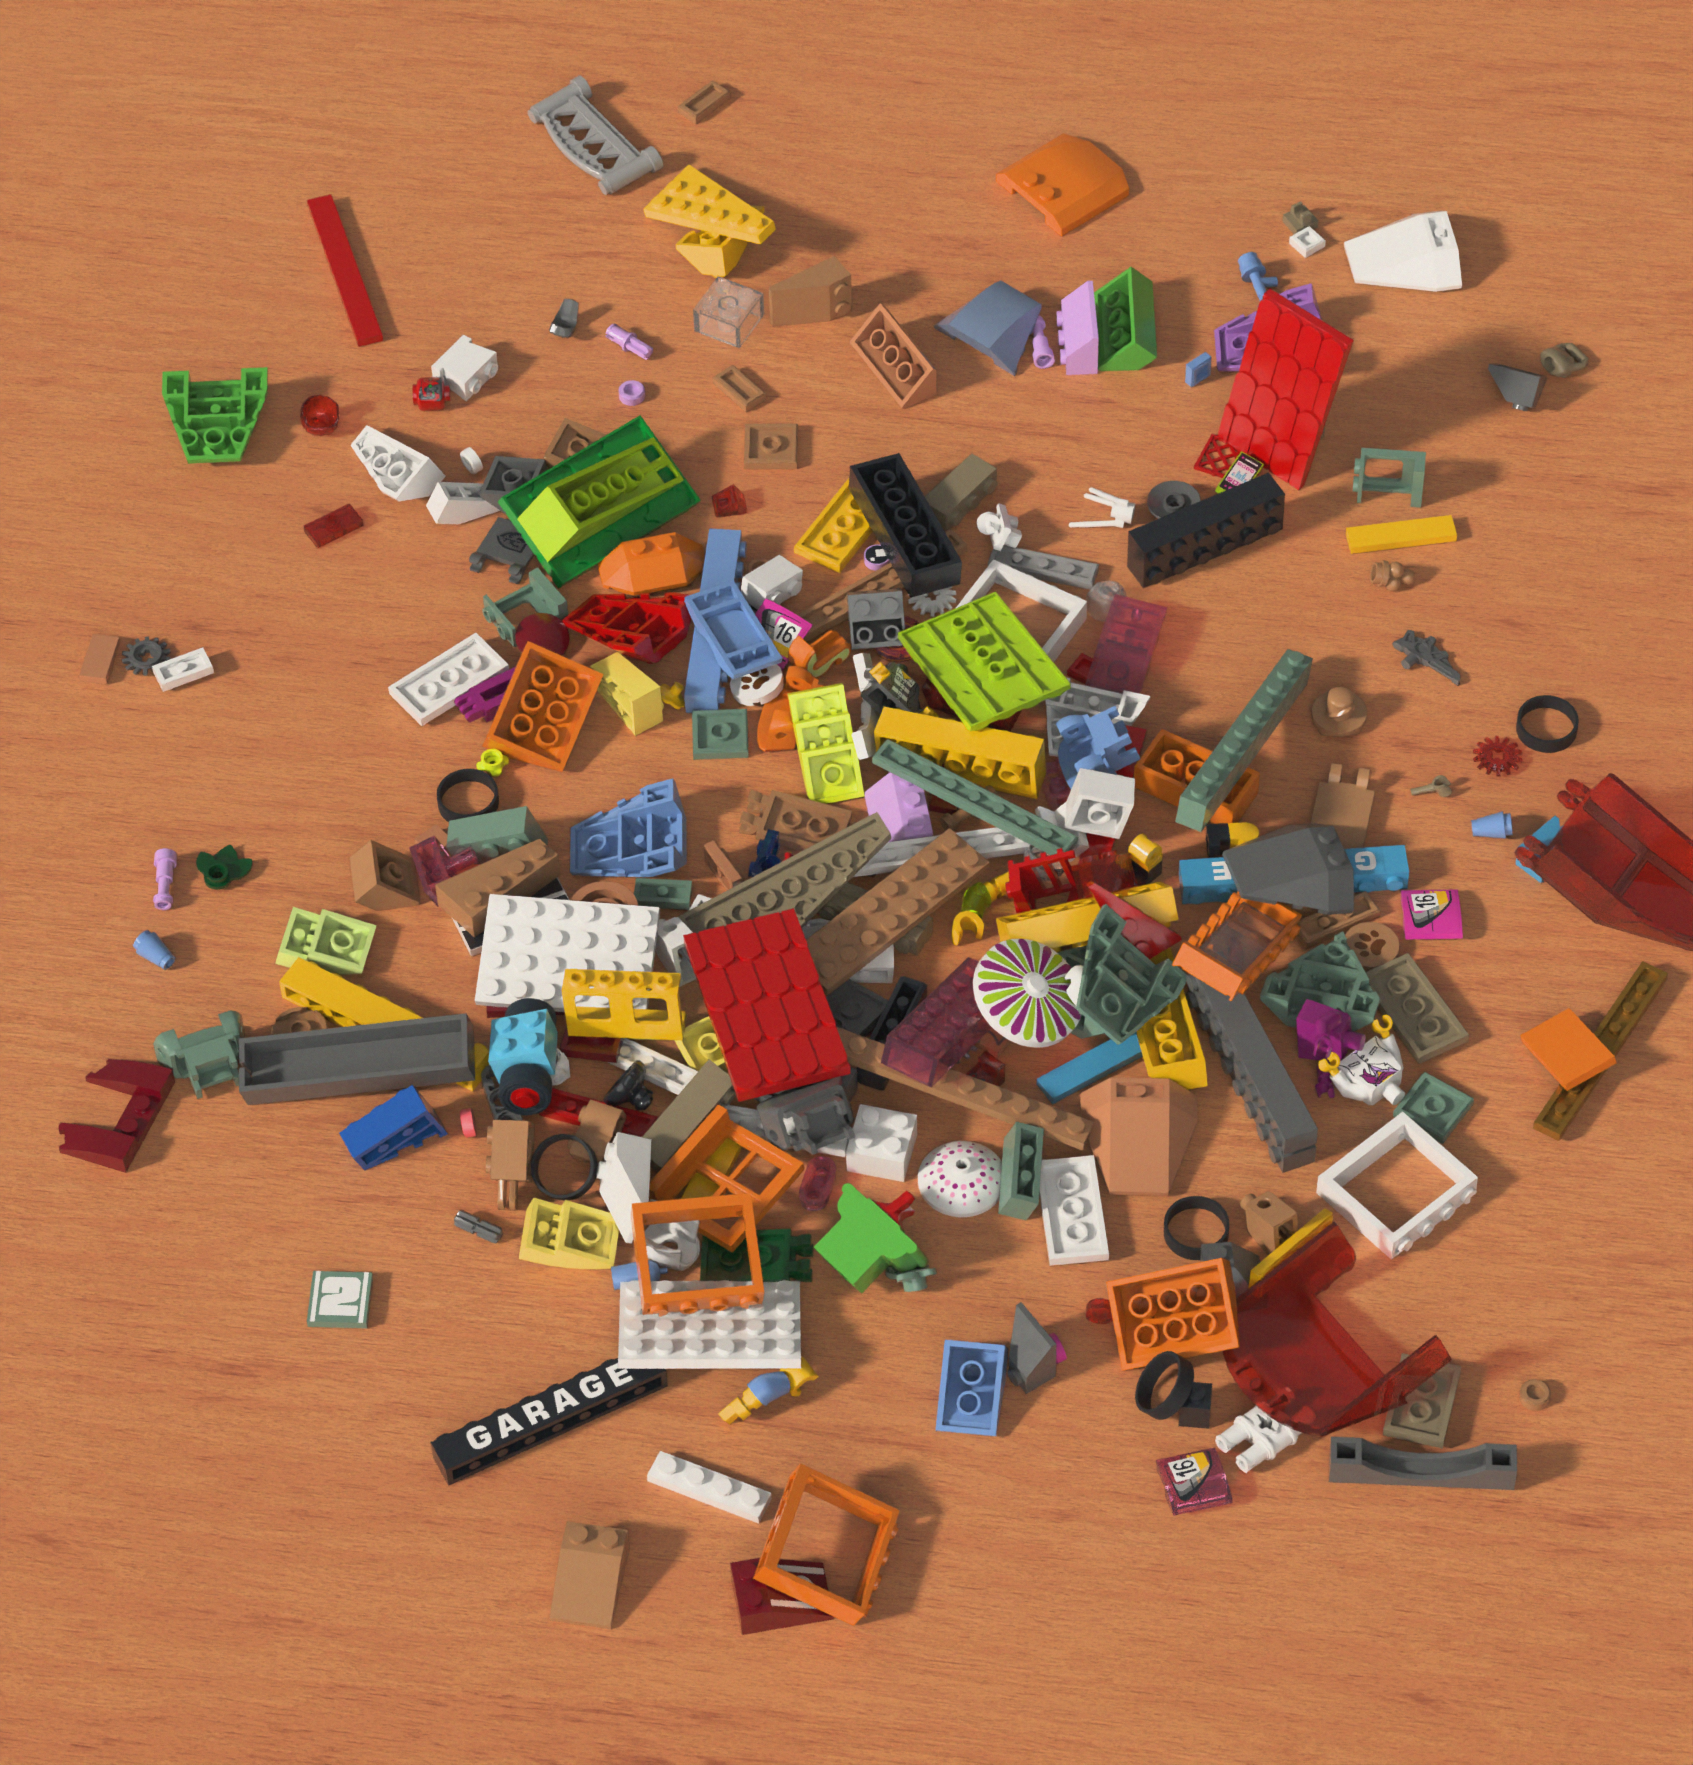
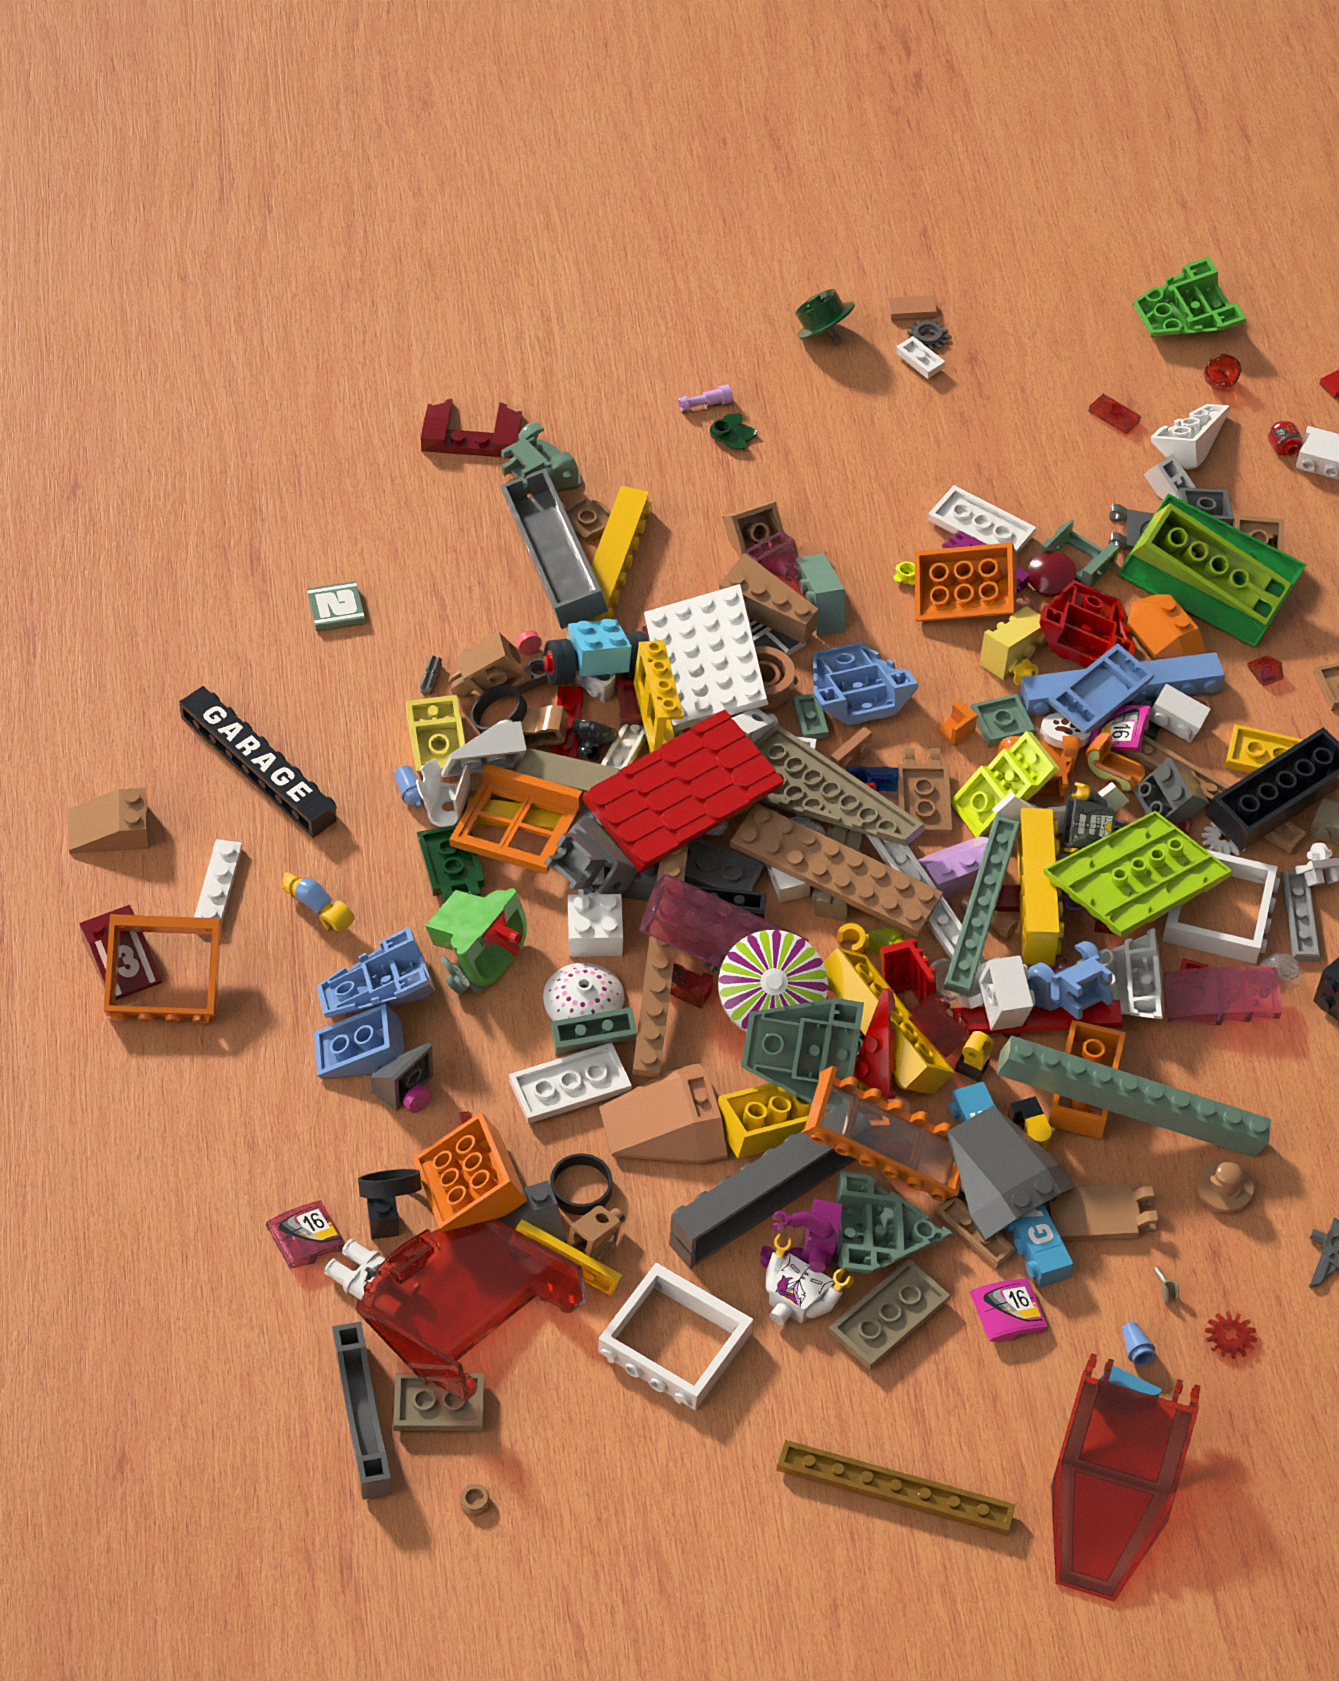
camera: 70 degrees right, 0 degrees up
(98, 733) = (822, 314): none -> dark green piece
(153, 949) = (634, 408): medium blue cone -> none
(328, 939) = (677, 509): yellowish green slope -> none
(391, 1127) = (505, 593): blue wedge -> none
(463, 776) = (860, 584): black tyre -> none
(471, 460) = (1224, 480): white tile -> none
(693, 1210) = (433, 842): orange window -> none
(708, 1339) = (366, 843): white plate -> none
(715, 770) = (960, 725): none -> orange panel
(816, 1185) = (541, 891): clear pink plate -> none
(898, 1348) = (389, 975): none -> medium blue wedge
(1088, 1068) = (723, 1060): dark azure tile -> none
(1373, 944) = (953, 1265): medium nougat tile -> none
(1435, 1106) = (781, 1354): sand green tile -> none
(1552, 702) = (1300, 1348): black tyre -> none
(1568, 1049) = (880, 1453): orange tile -> none

